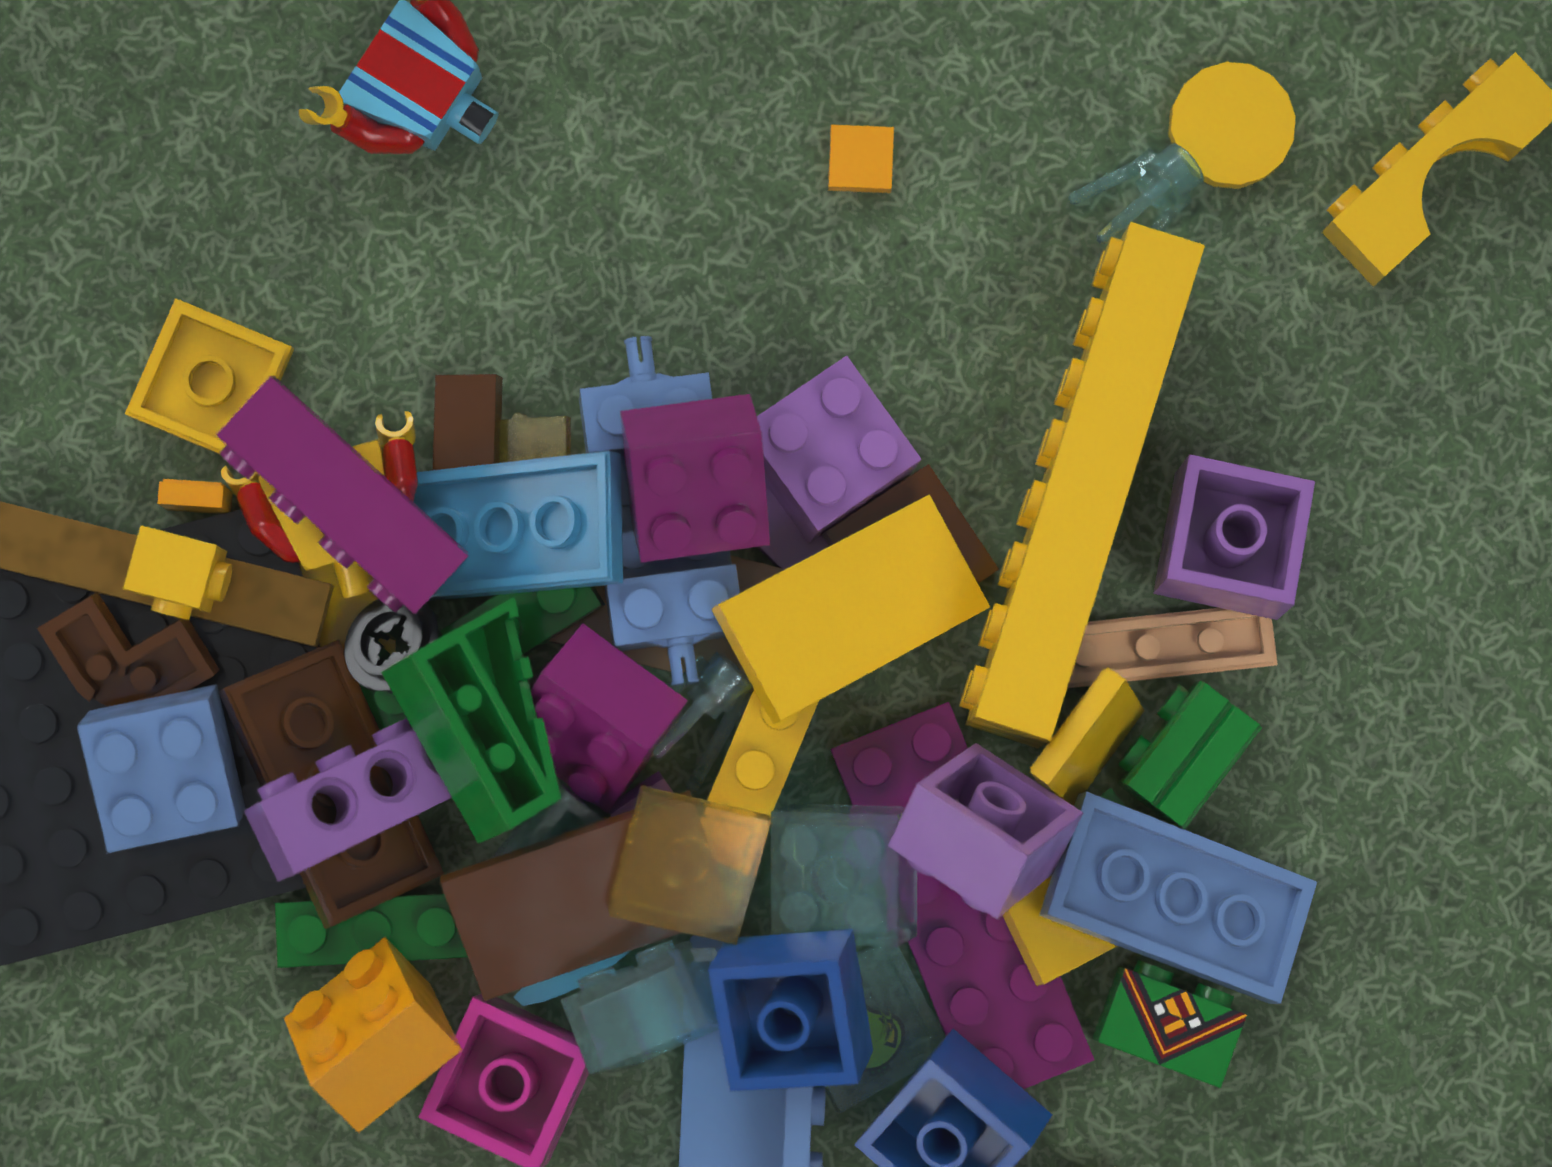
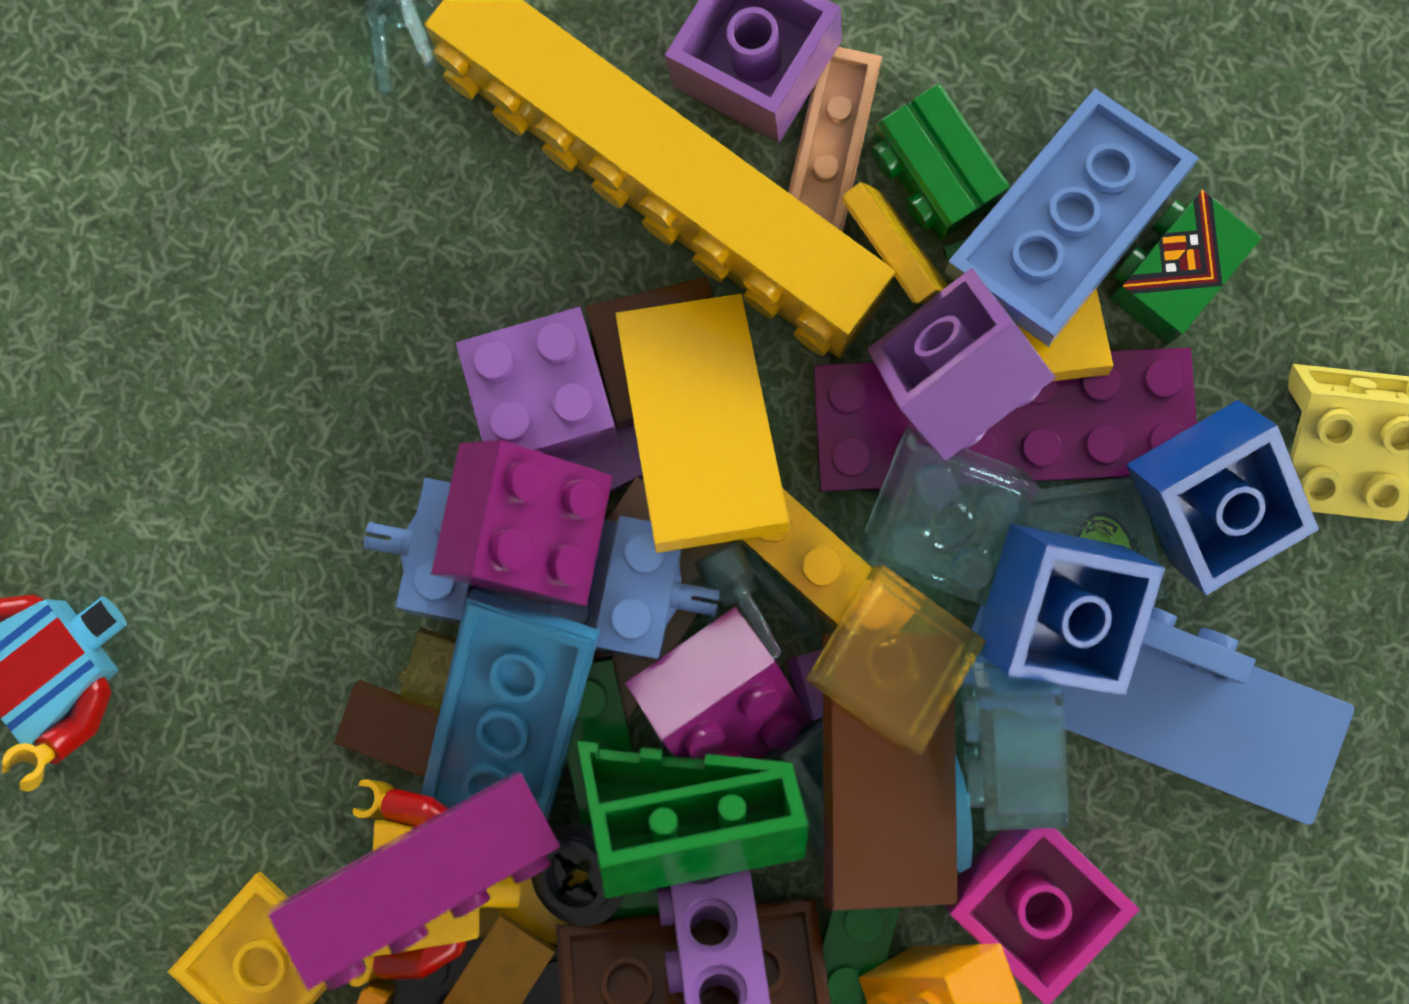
camera: 65 degrees left, 0 degrees up
(861, 158) = (275, 270): light orange tile -> none

